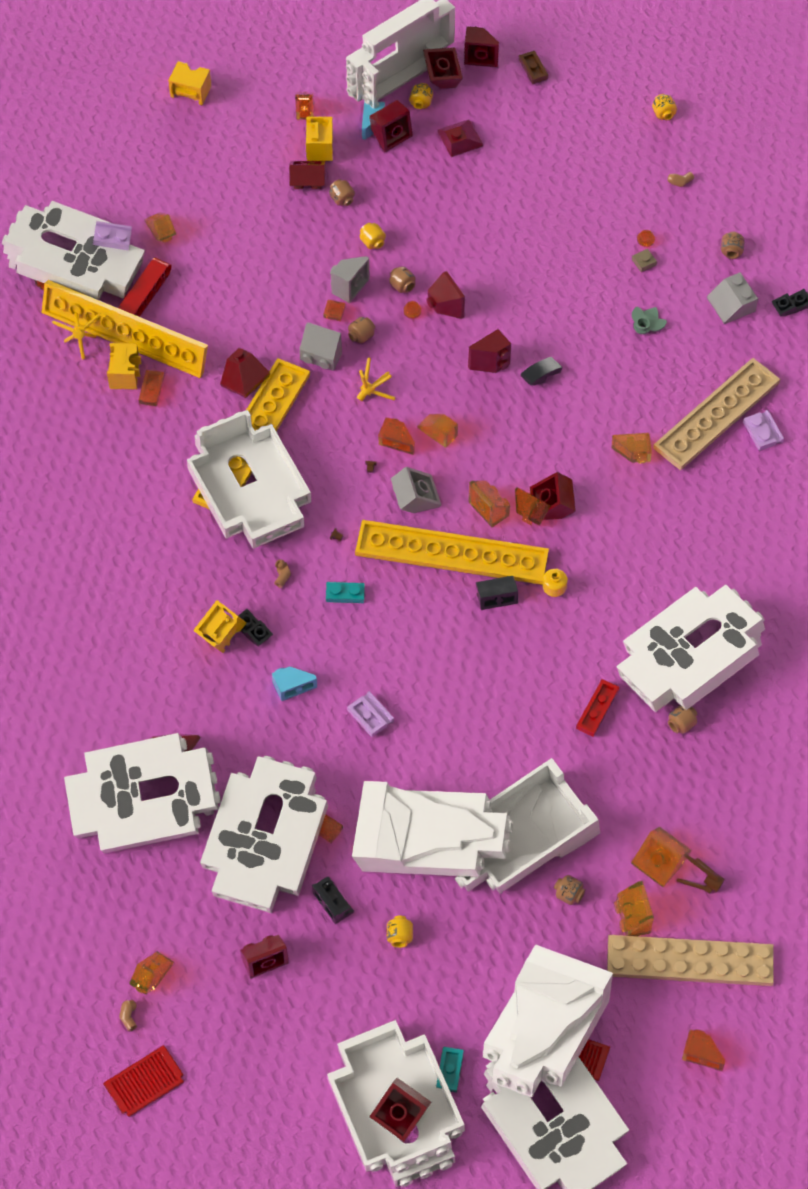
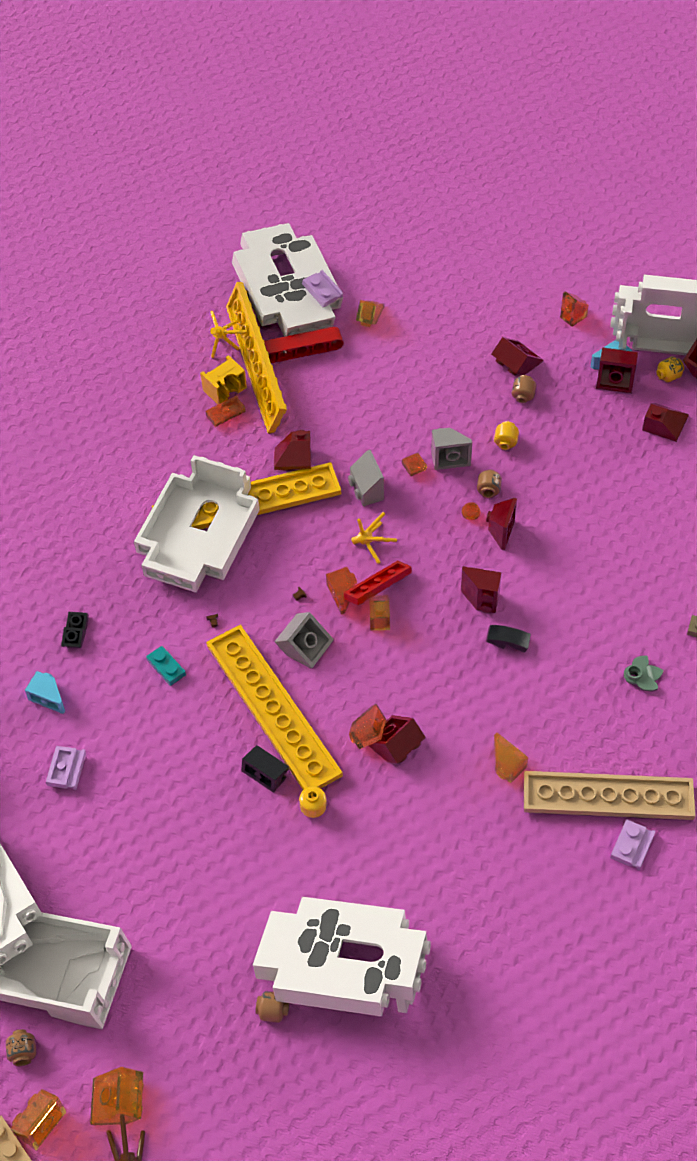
camera: 50 degrees right, 5 degrees down
(190, 83) = (510, 234): yellow piece -> none
(219, 626) = (48, 605): yellow piece -> none
(283, 571) = (144, 613): medium nougat arm -> none
(319, 138) = (552, 338): yellow piece -> none
(361, 330) = (414, 493): medium nougat head -> none
(418, 410) = (377, 582): none -> red plate
(488, 502) = (342, 694): slope -> none
(597, 707) = (223, 929): red plate -> none

